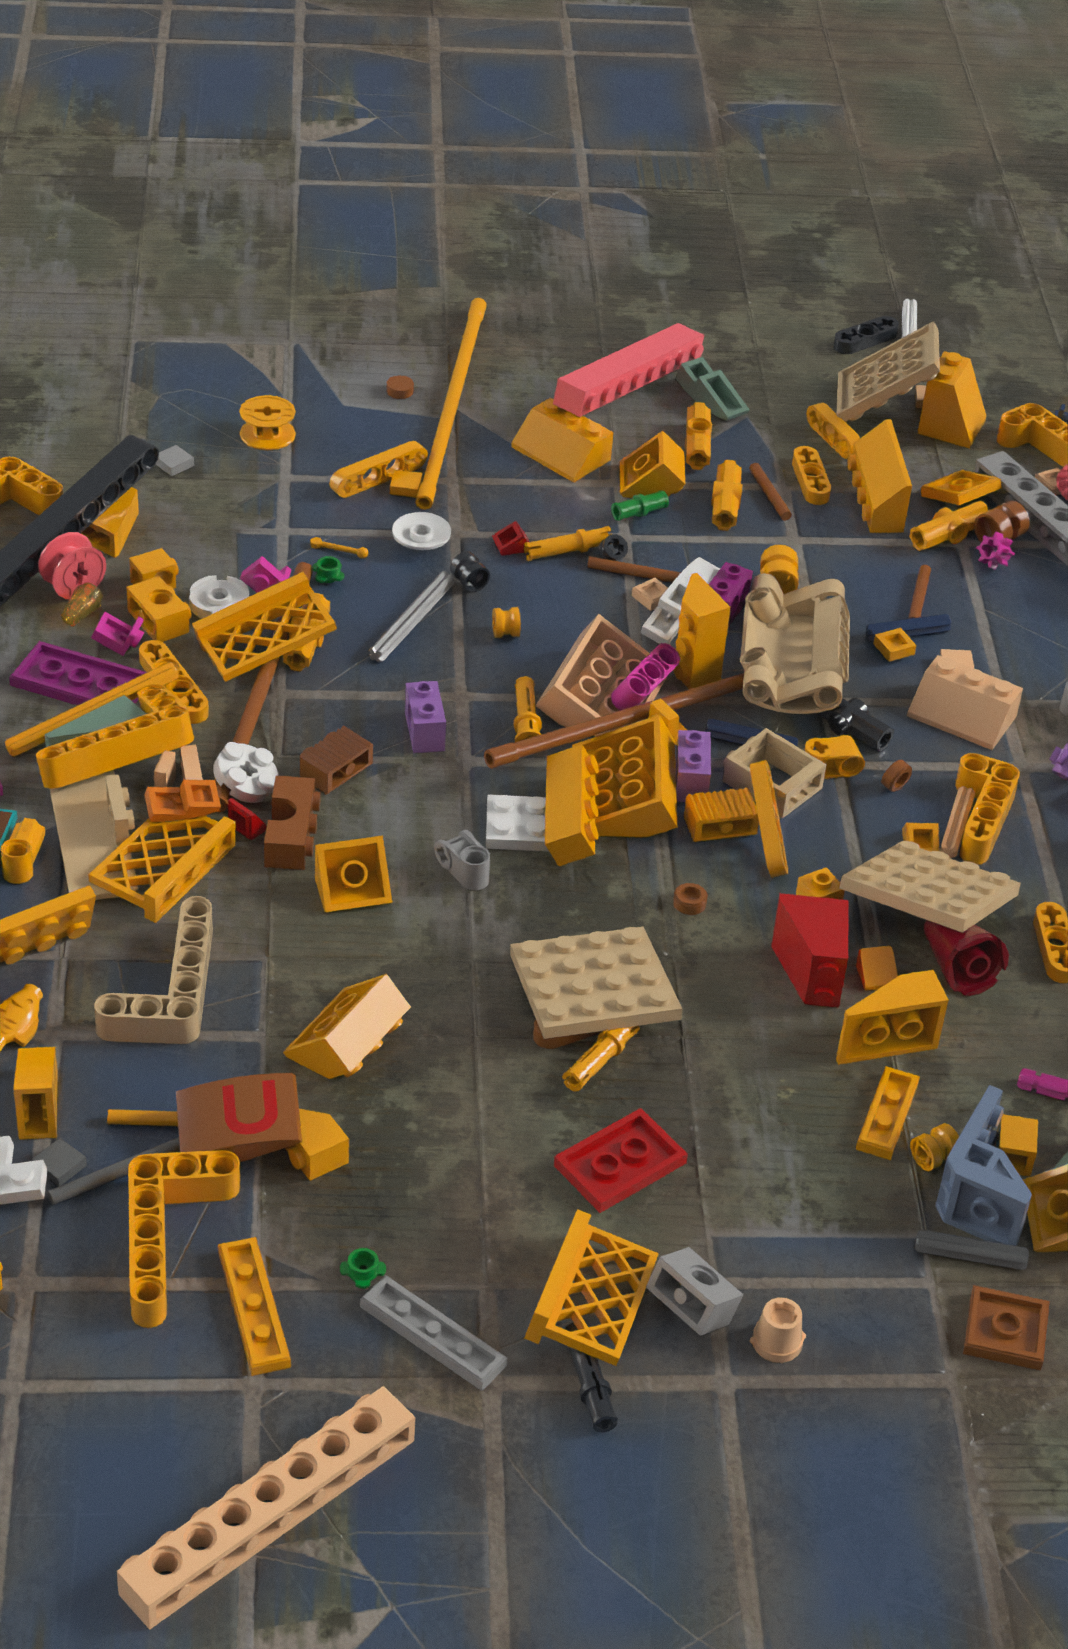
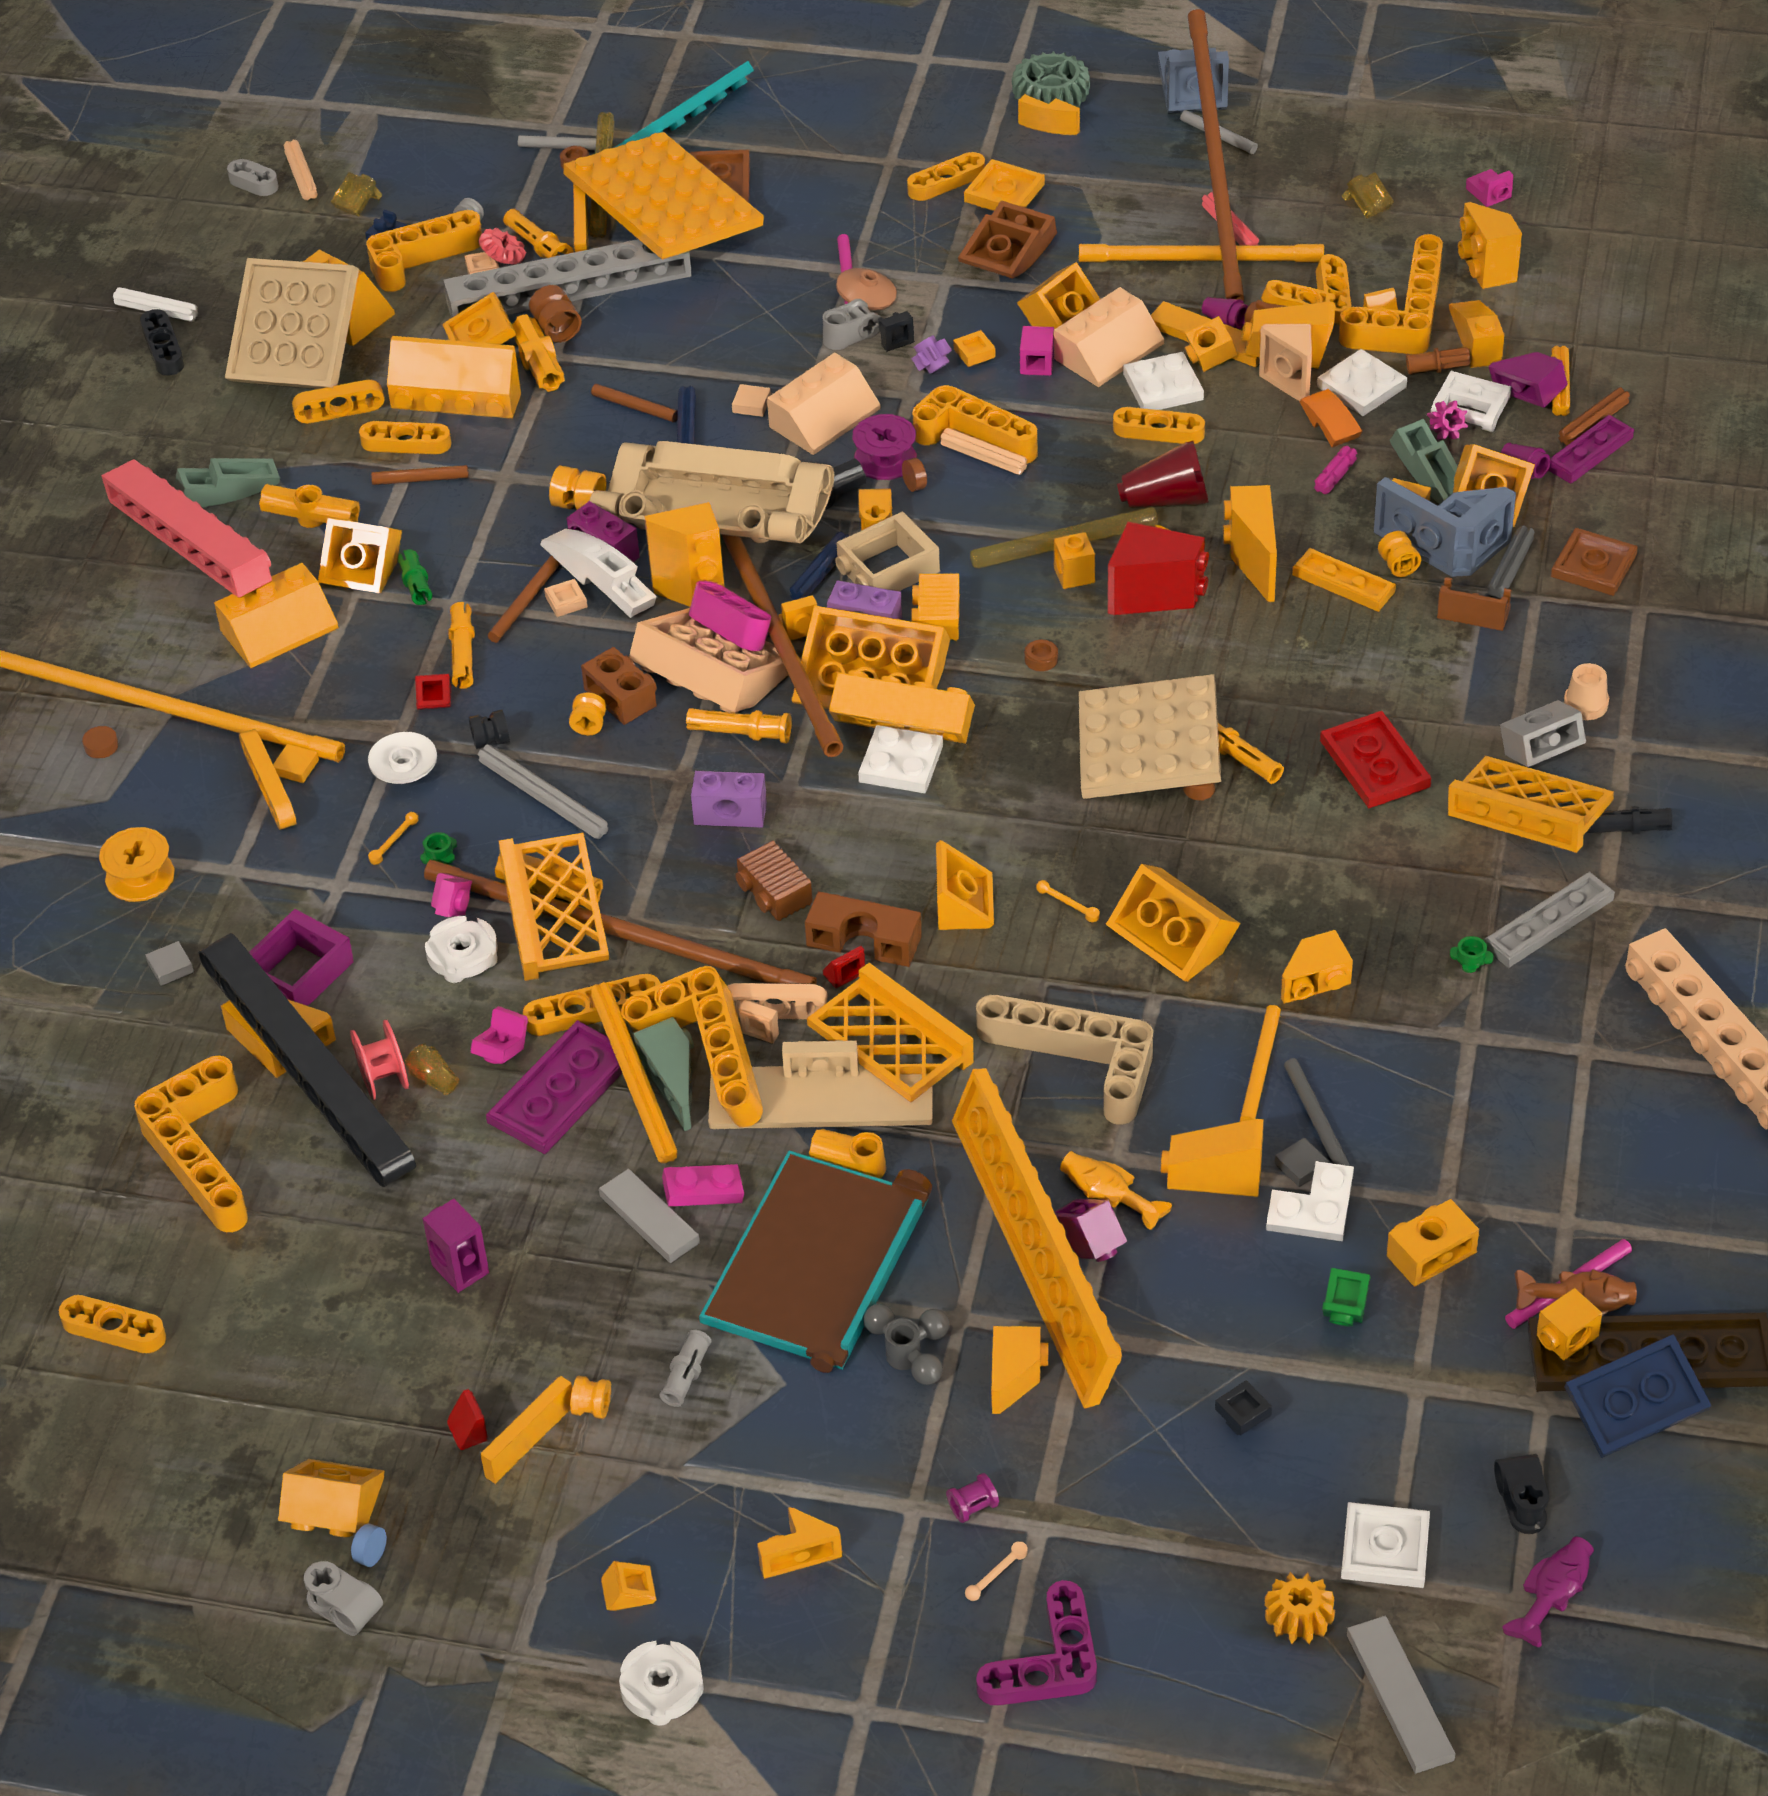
camera: 70 degrees left, 5 degrees up
(152, 565) = (398, 997): light orange brick -> none
(160, 608) = (466, 999): light orange brick -> none
(160, 1181) = (1408, 1096): light orange beam -> none
(188, 801) = (826, 1000): orange slope -> none
(205, 506) = (313, 936): none -> magenta window
(230, 769) = (778, 951): white plate -> none
(240, 1115) = (1295, 1006): dark orange slope -> none
(254, 1306) = (1500, 1037): light orange tile -> none
(356, 976) = (1091, 913): none -> light orange hinge
(465, 860) = (954, 802): light grey piece -> none
(546, 634) = (620, 684): none -> dark orange brick
(618, 543) = (487, 610): black bush -> none
(726, 495) = (423, 505): light orange piece -> none
(768, 819) = (969, 566): light orange beam -> none
(877, 912) = (1044, 541): none -> clear yellow axle
(885, 1220) = (1473, 608): none -> dark orange hinge
(894, 644) = (715, 433): light orange plate -> none
(923, 834) = (999, 481): light orange slope -> none
(928, 749) = (895, 444): none -> magenta piece
(931, 885) = (1093, 476): tan plate -> none
(994, 543) = (603, 329): dark pink gear -> none

